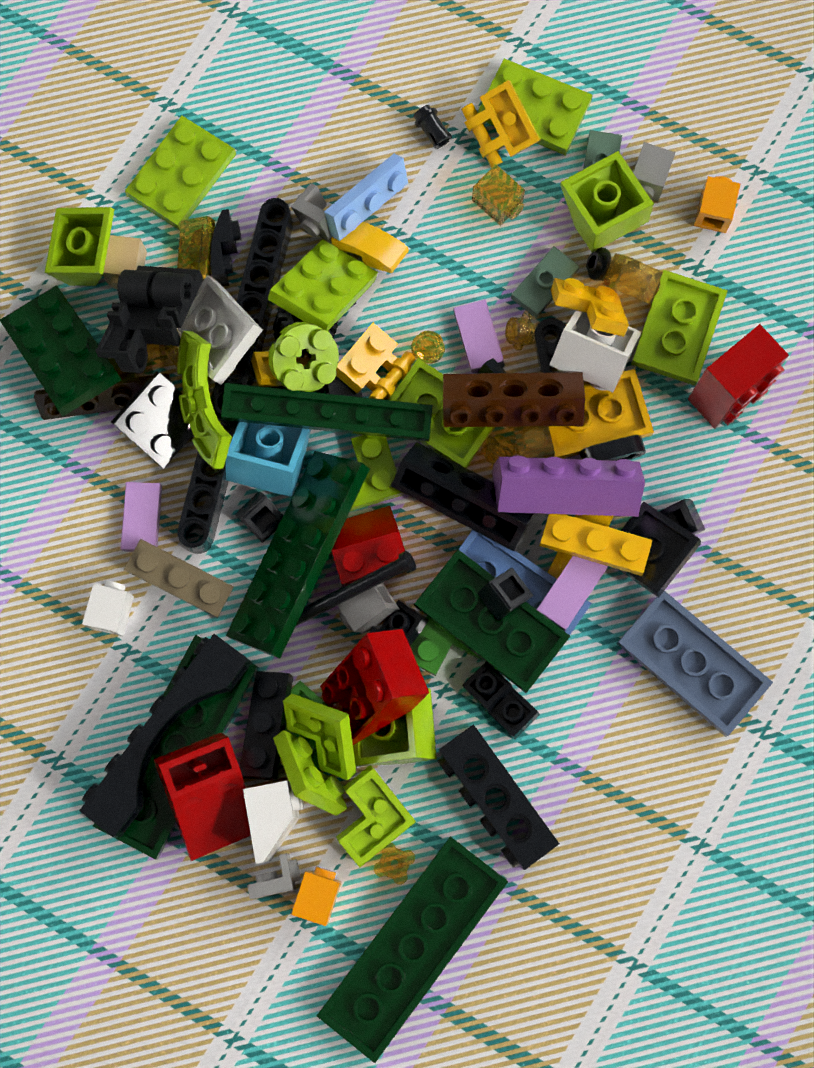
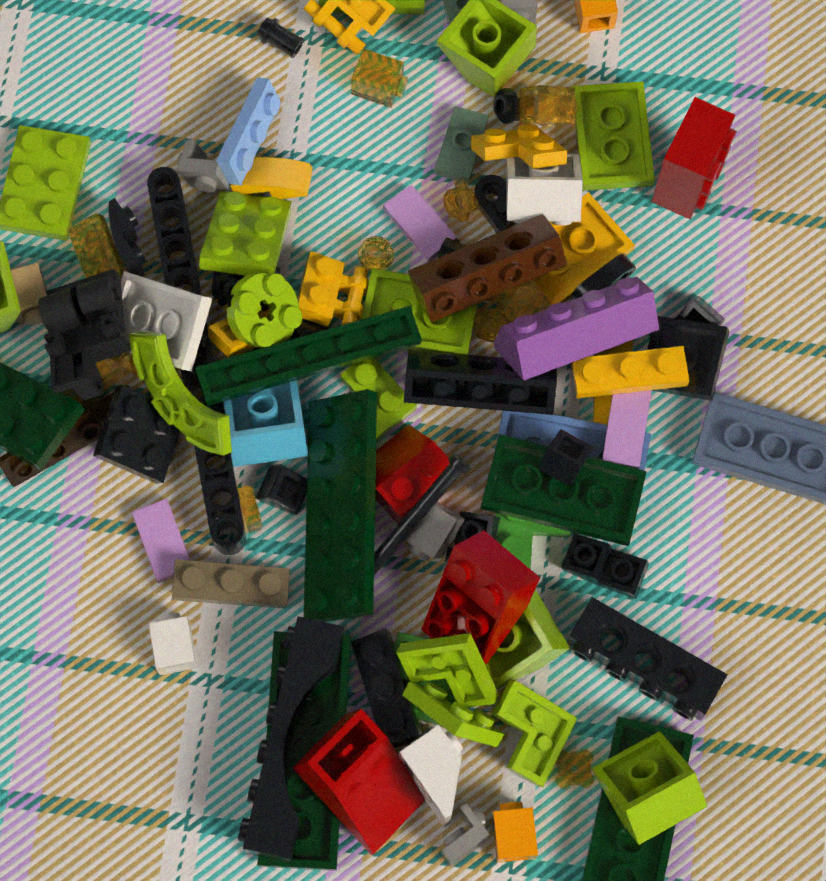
camera: 30 degrees left, 5 degrees down
(223, 521) = (250, 508): none -> clear yellow tile
(447, 912) = (650, 787): none -> lime slope

